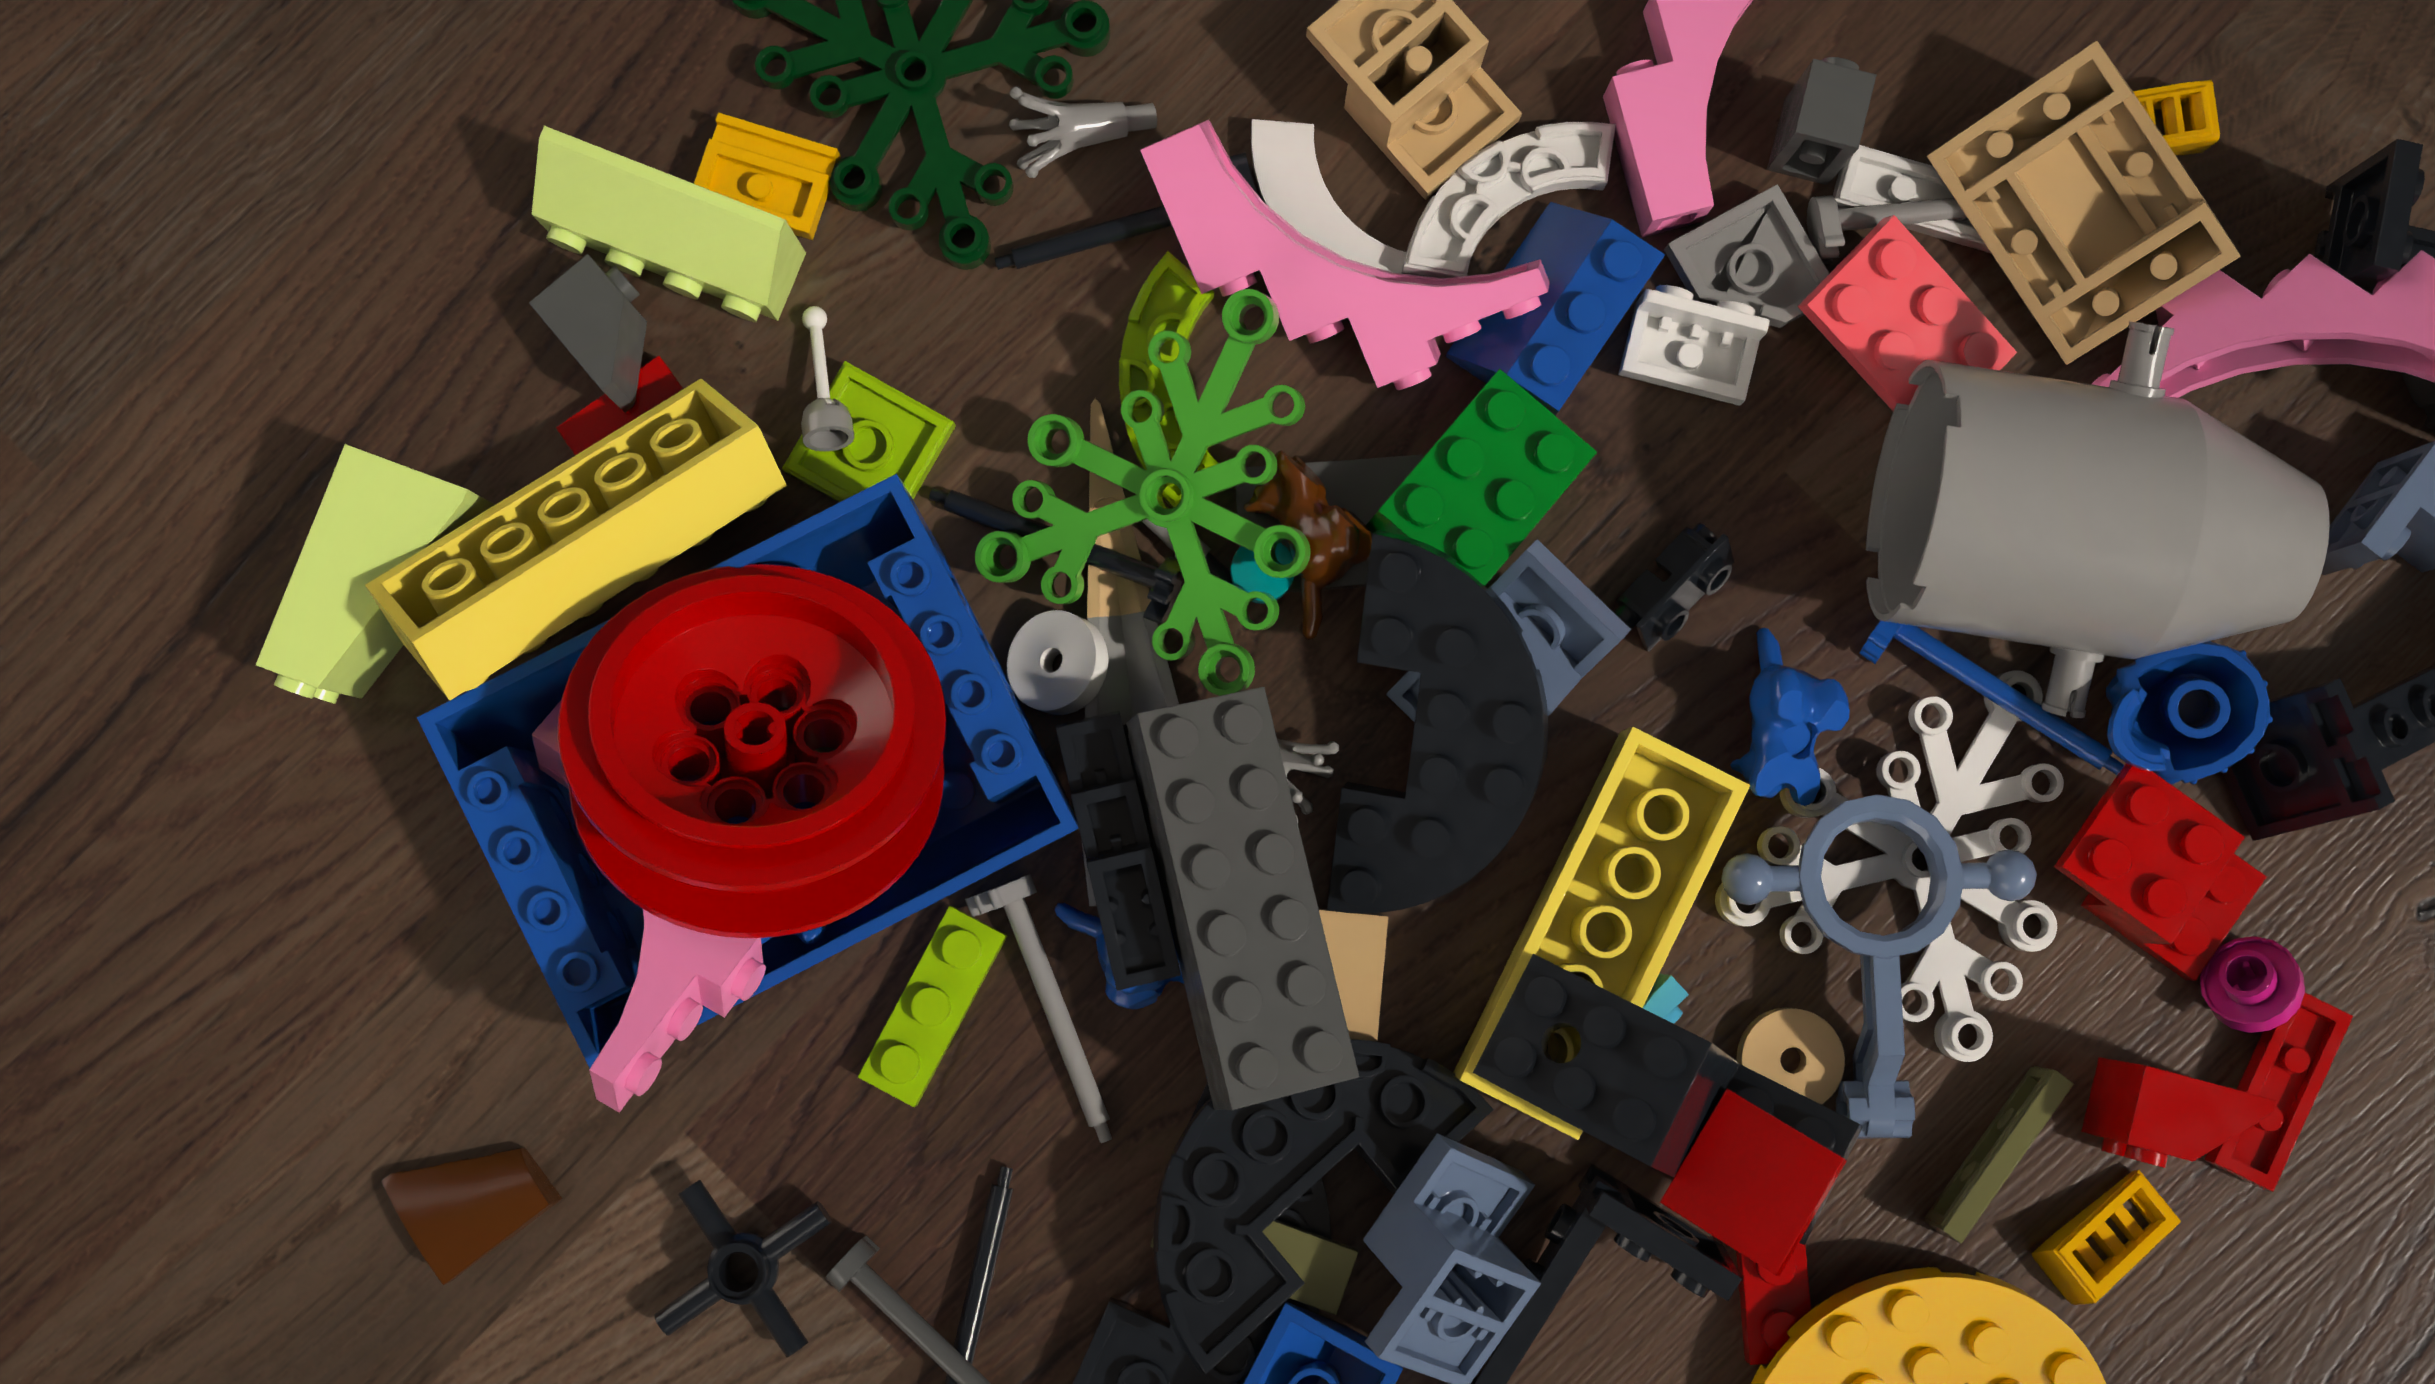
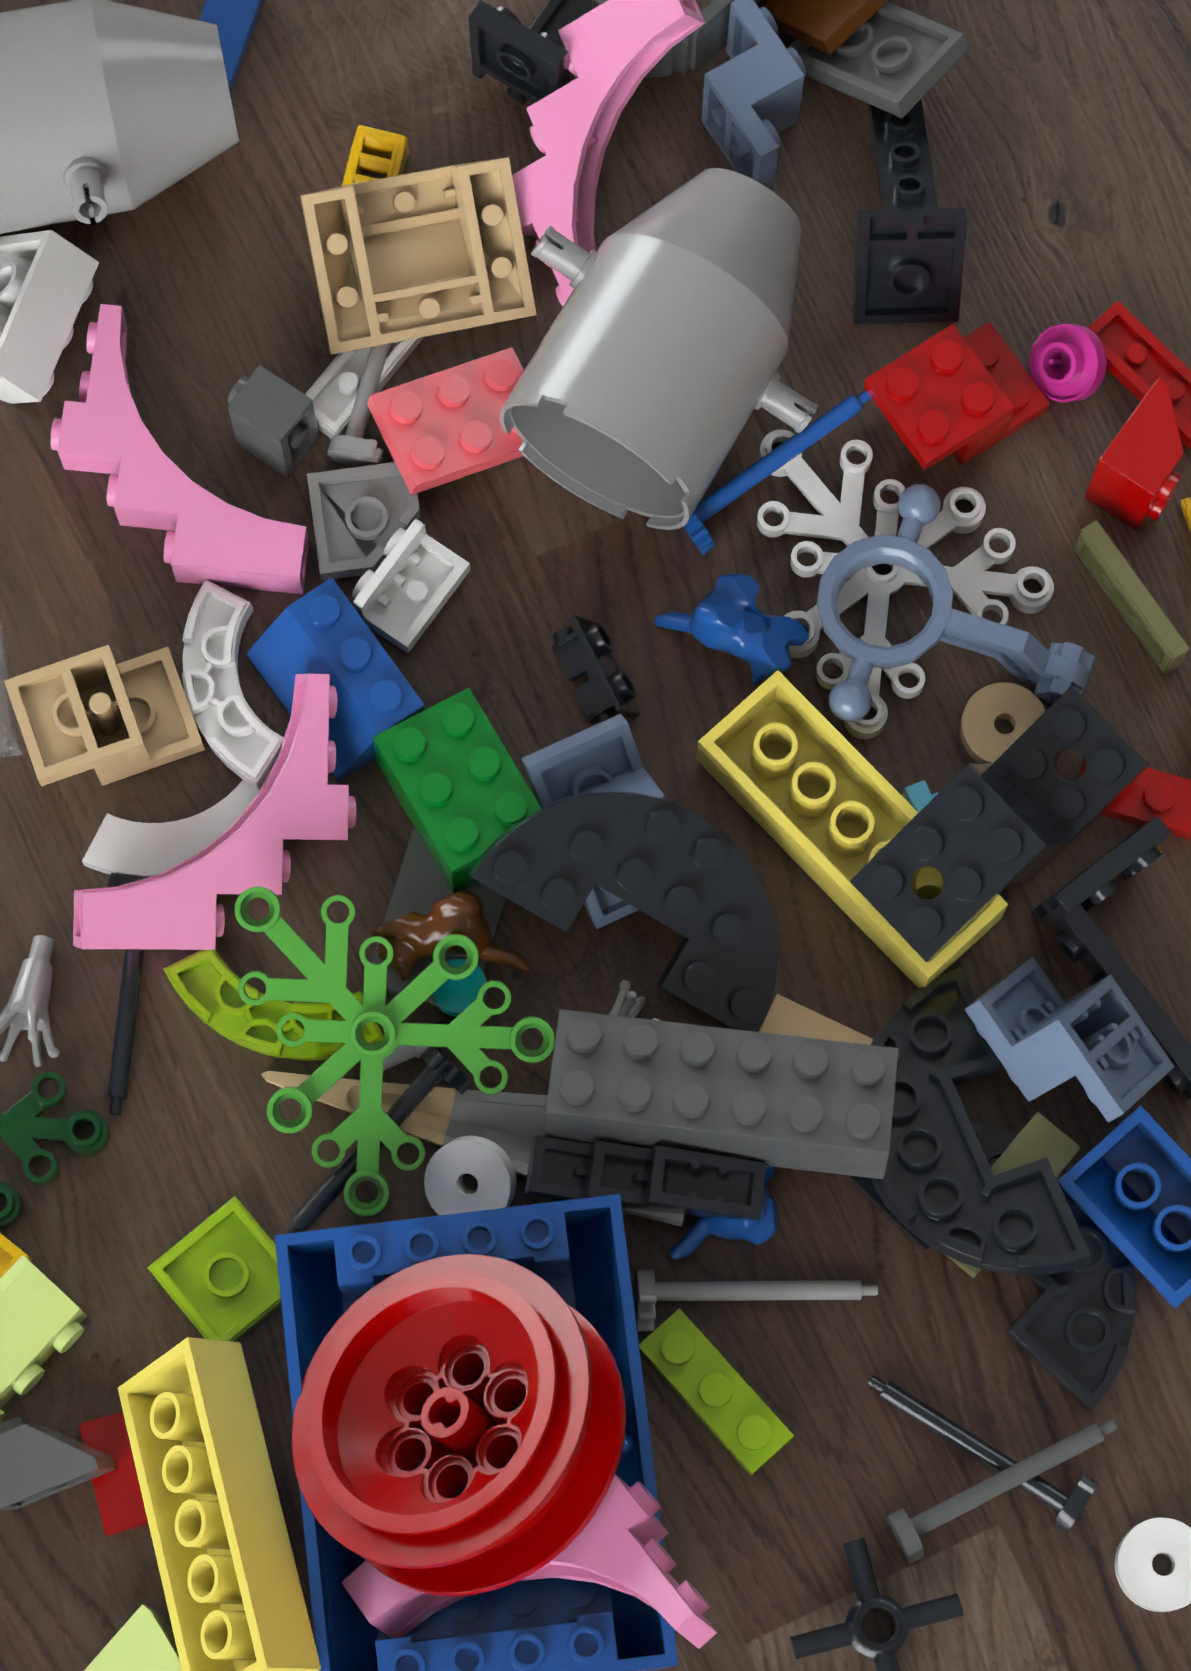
camera: 70 degrees left, 10 degrees down
(825, 421) = (195, 1297): light grey hinge -> none
(1753, 1182) = (1087, 782): red tile -> none
(2187, 711) = (841, 328): blue head -> none

